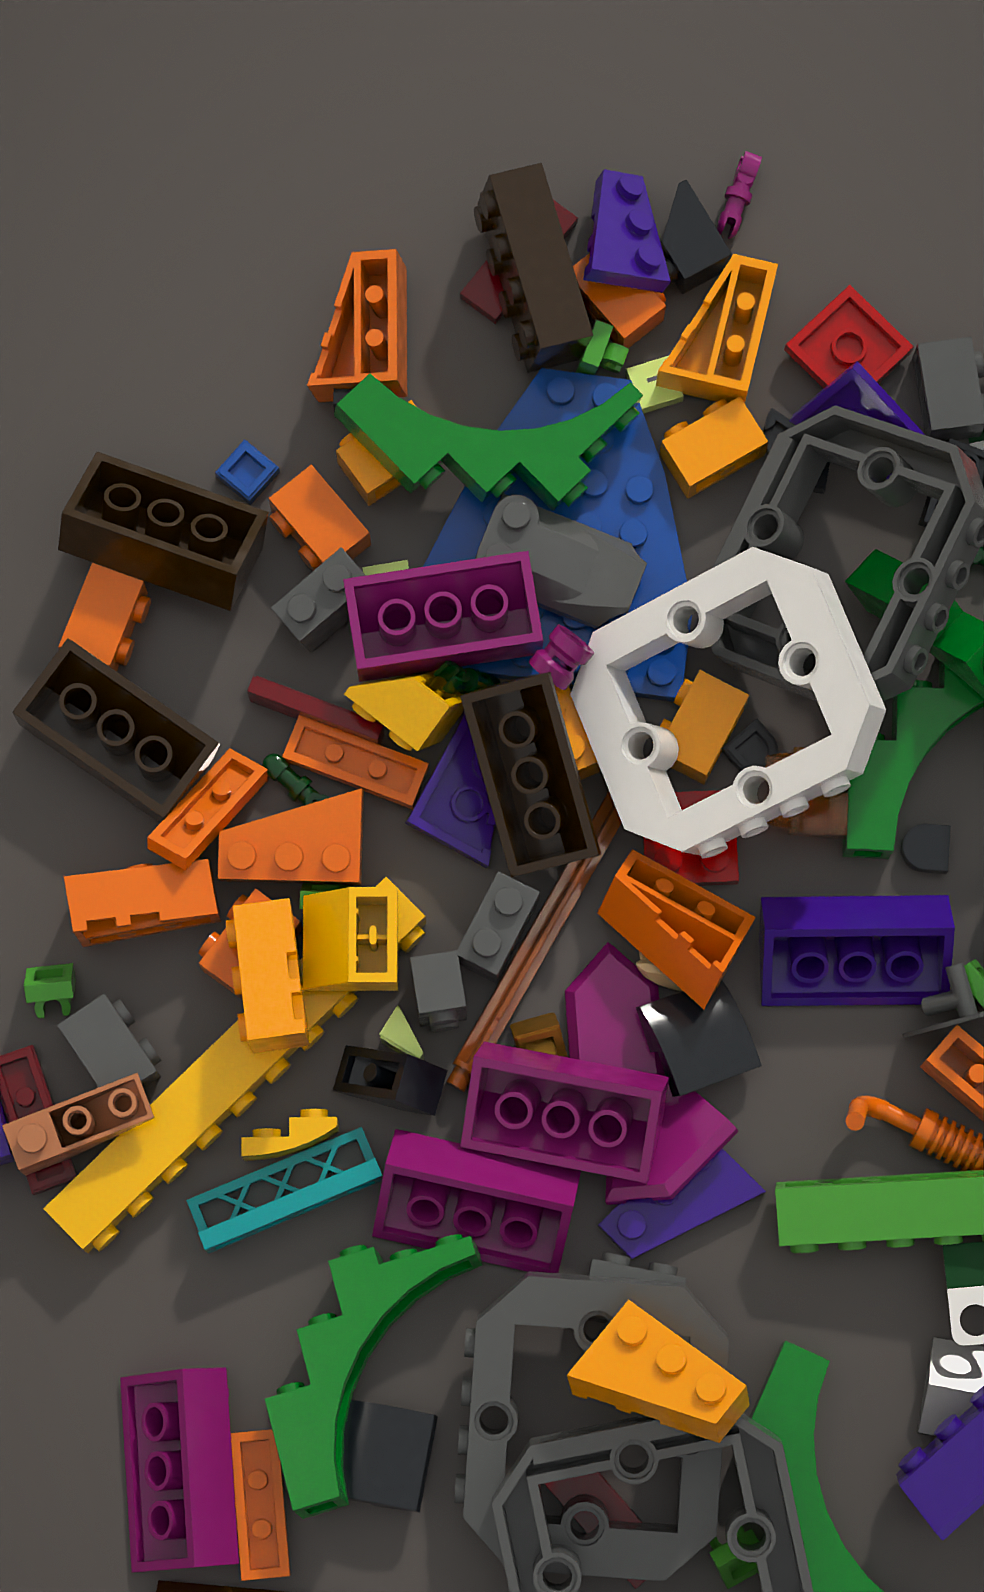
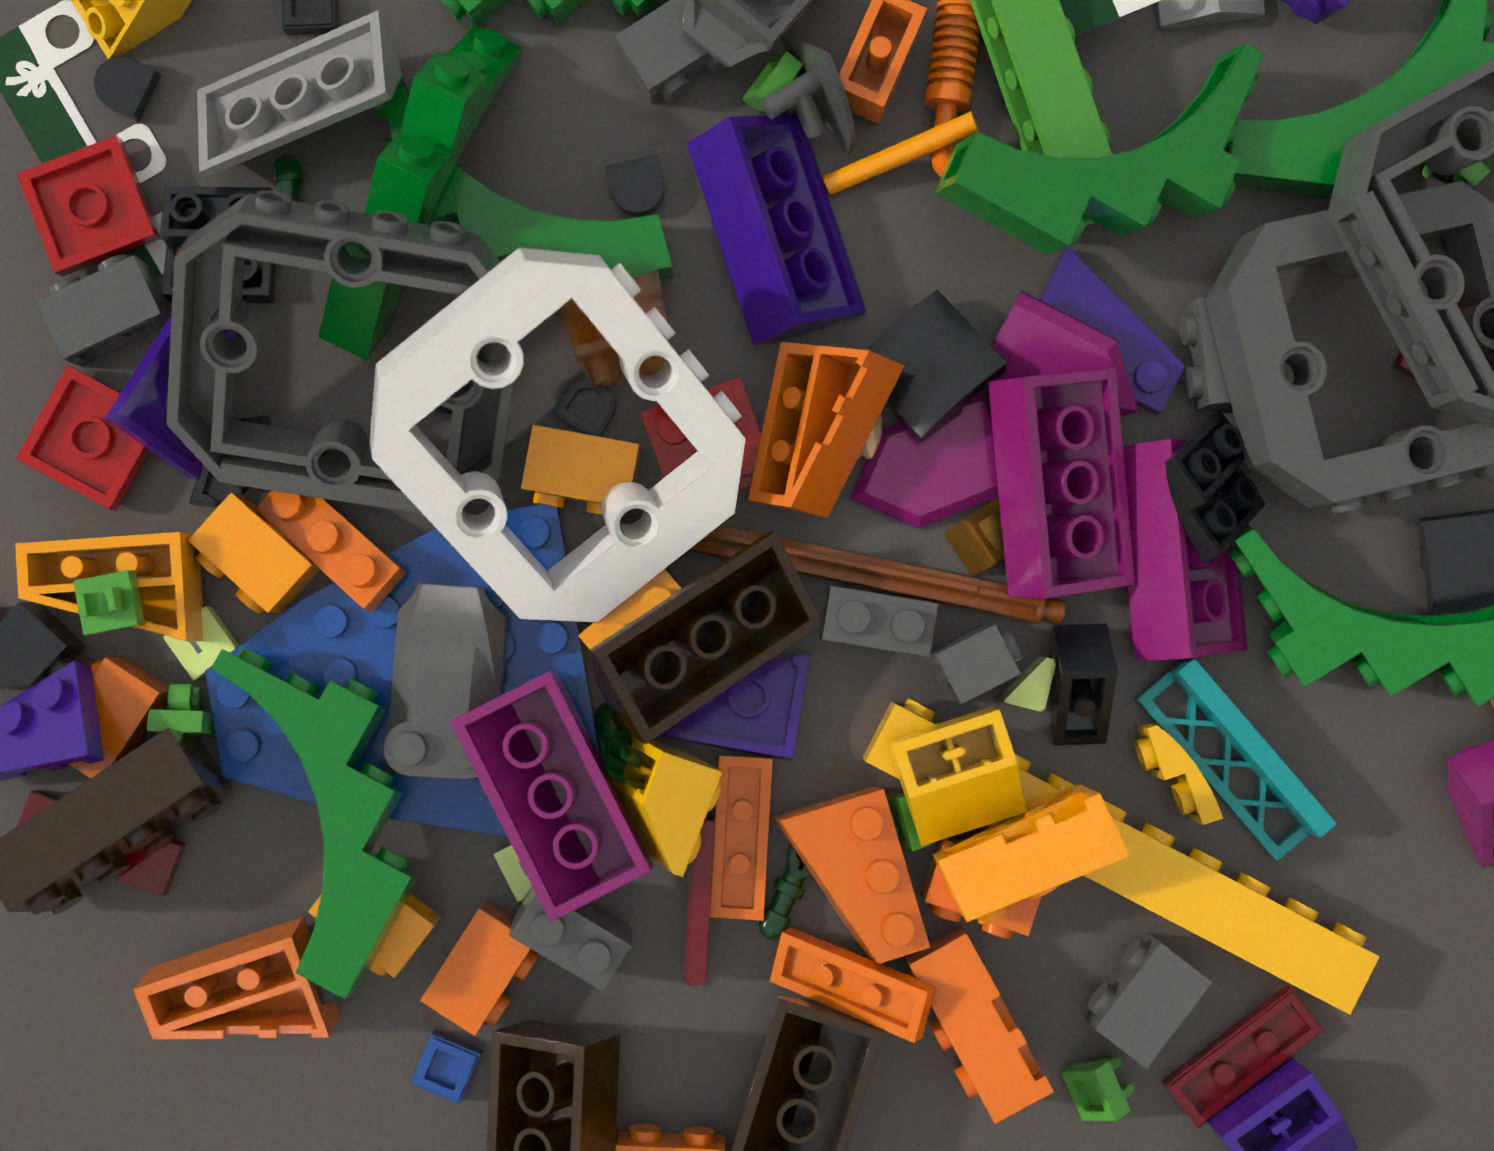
camera: 110 degrees left, 10 degrees up
(77, 1124) = (1253, 1012): nougat slope -> none
(522, 1234) = (1210, 488): none -> black slope
(561, 656) = (561, 644): magenta wheel -> none
(658, 1375) = (1354, 276): light orange wedge -> none
(698, 510) = (334, 546): none -> orange plate
(707, 320) = (109, 602): none -> bright green tile
(795, 1233) = (1050, 198): none -> green arch
(886, 1072) = (901, 153): none -> light orange bar

